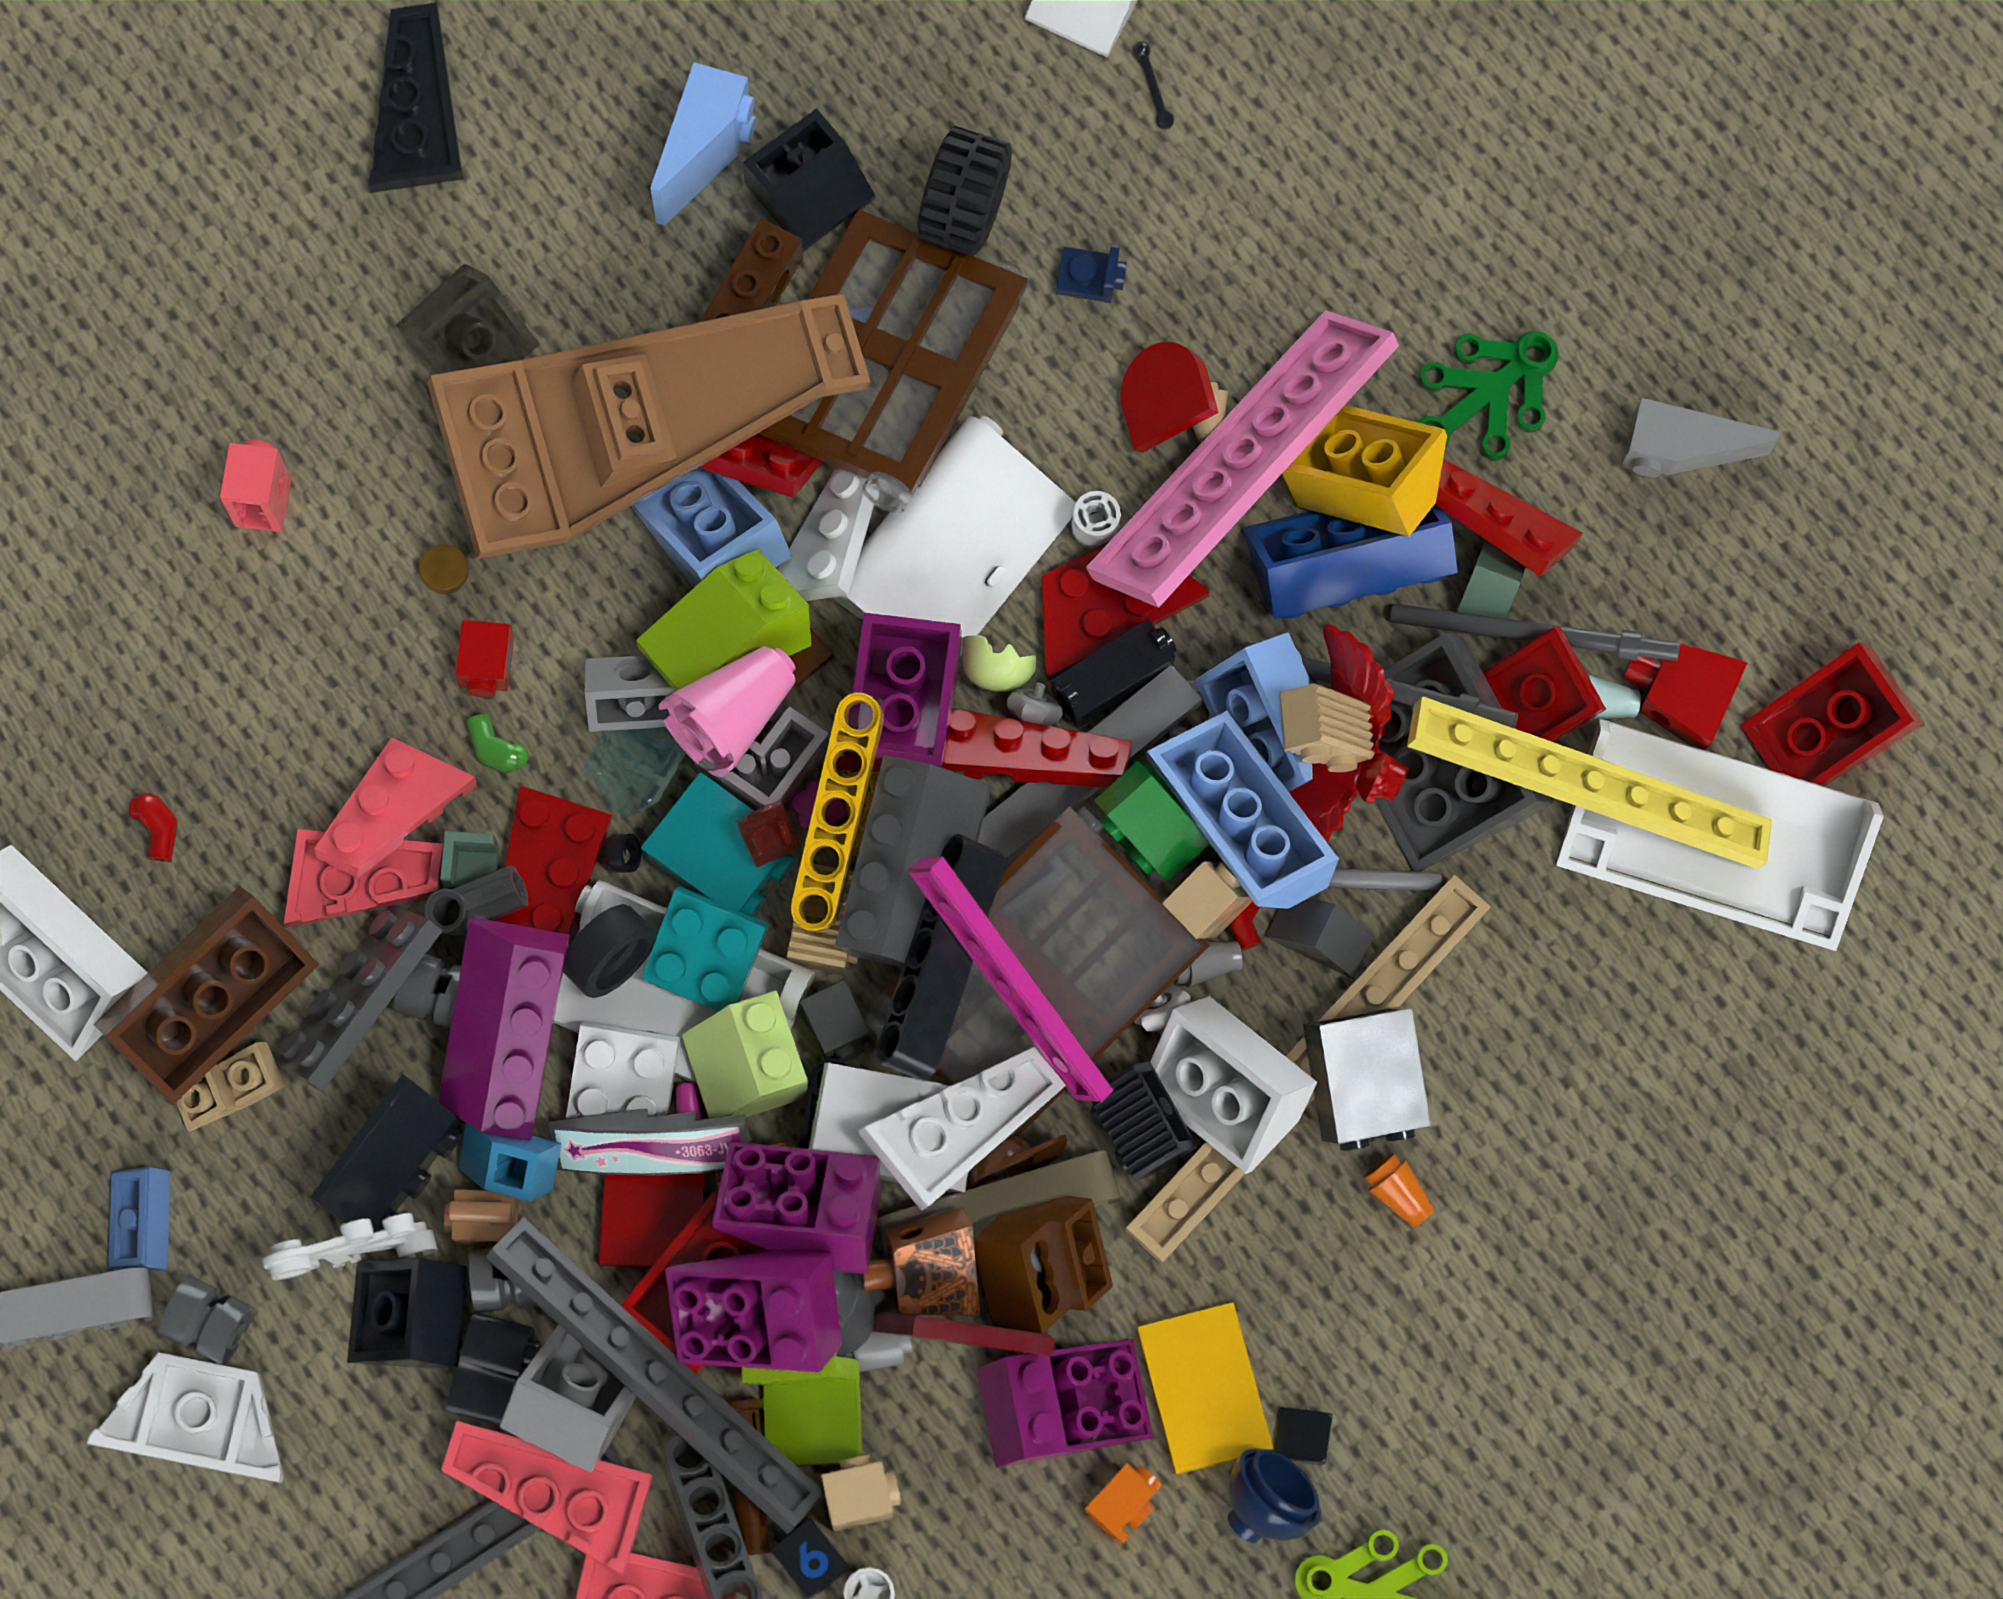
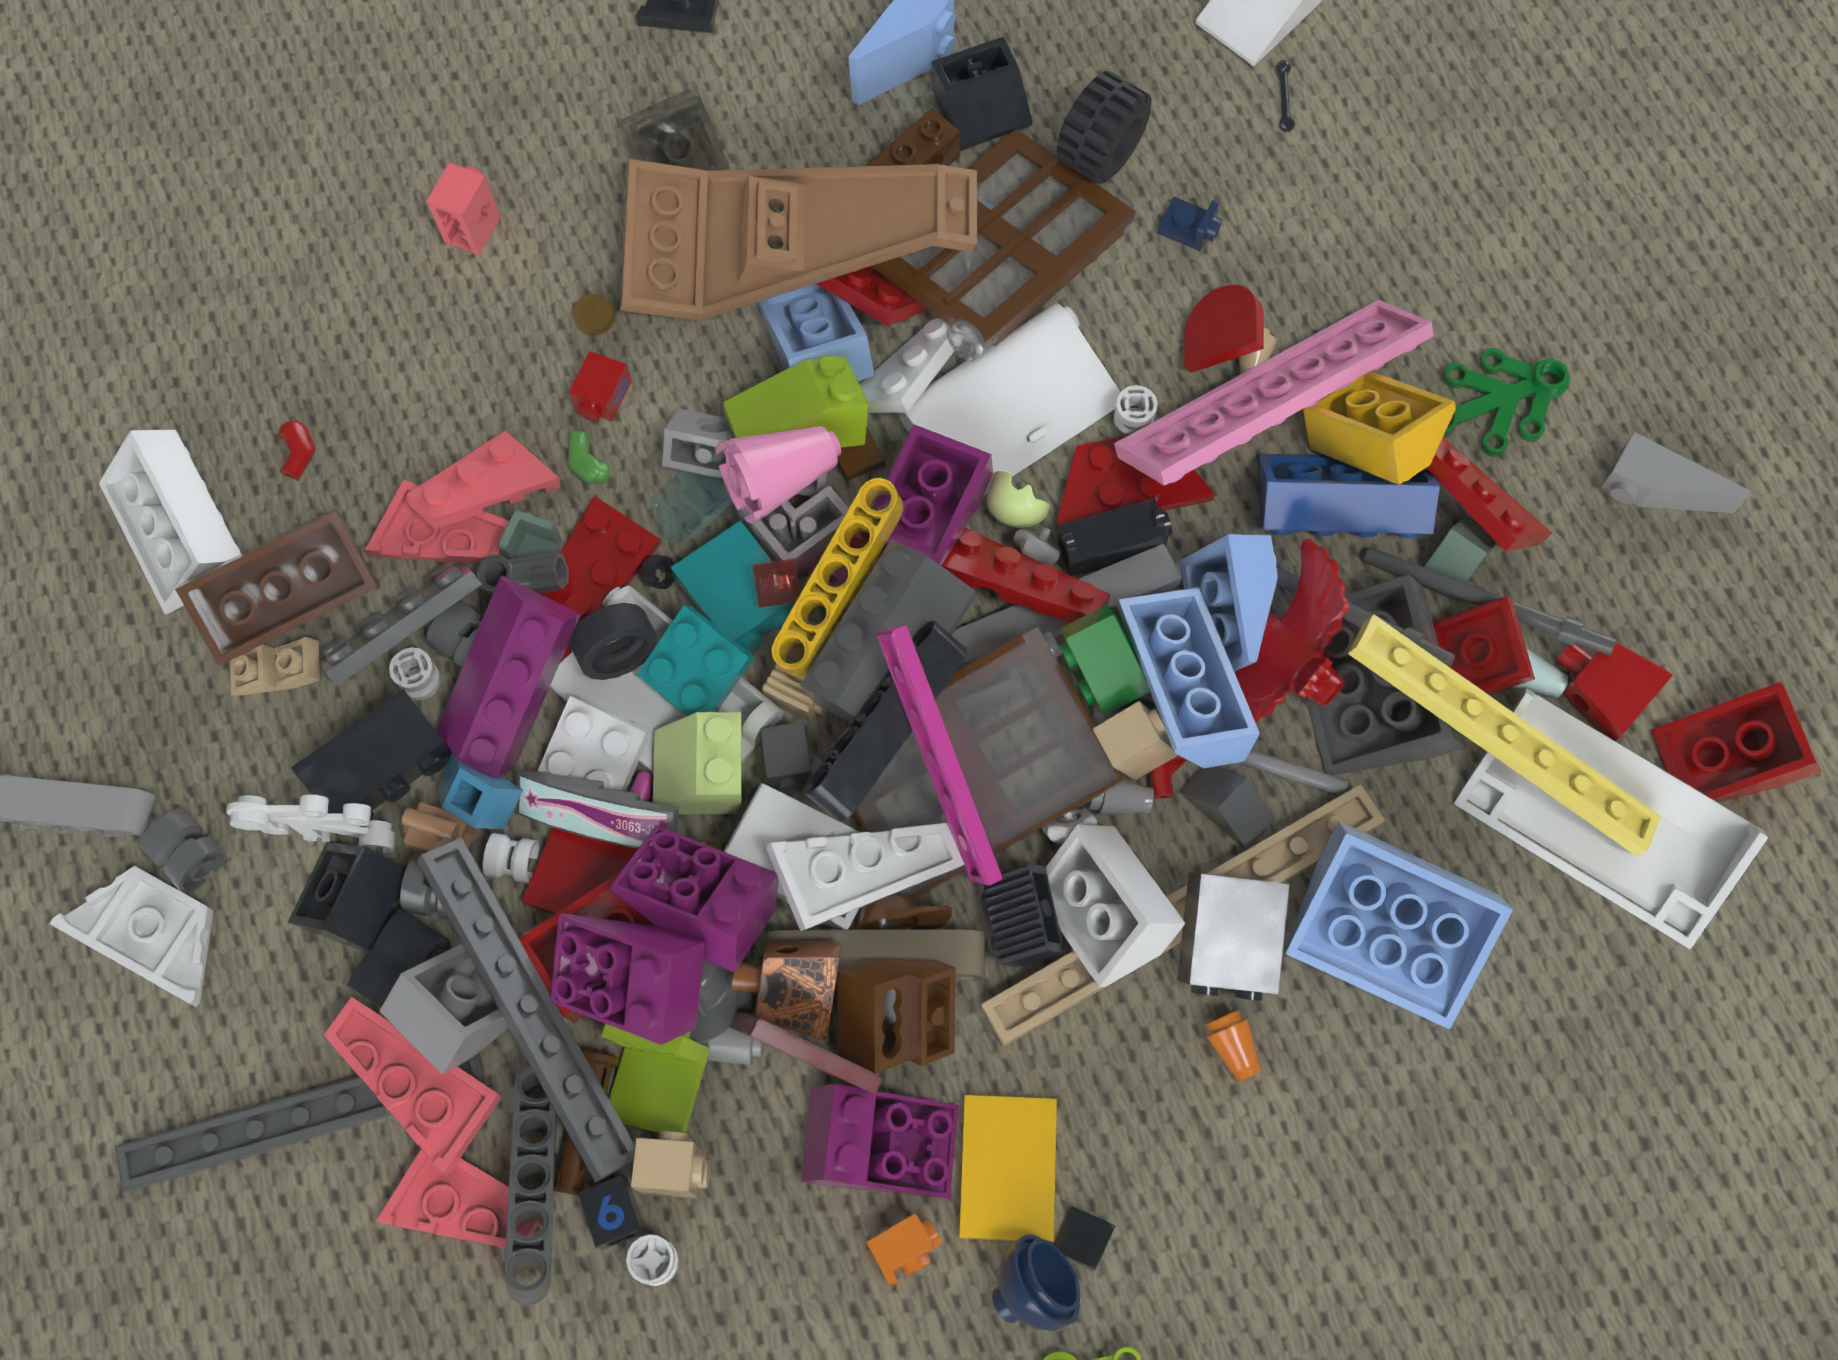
camera: 25 degrees right, 5 degrees down
(139, 1219) = (166, 754): medium blue slope -> none
(399, 1054) = (422, 681): none -> white wheel
(560, 1220) = (509, 857): none -> white wheel
(1326, 727) = (1280, 619): tan brick -> none
(1531, 1015) = (1396, 925): none -> light blue slope

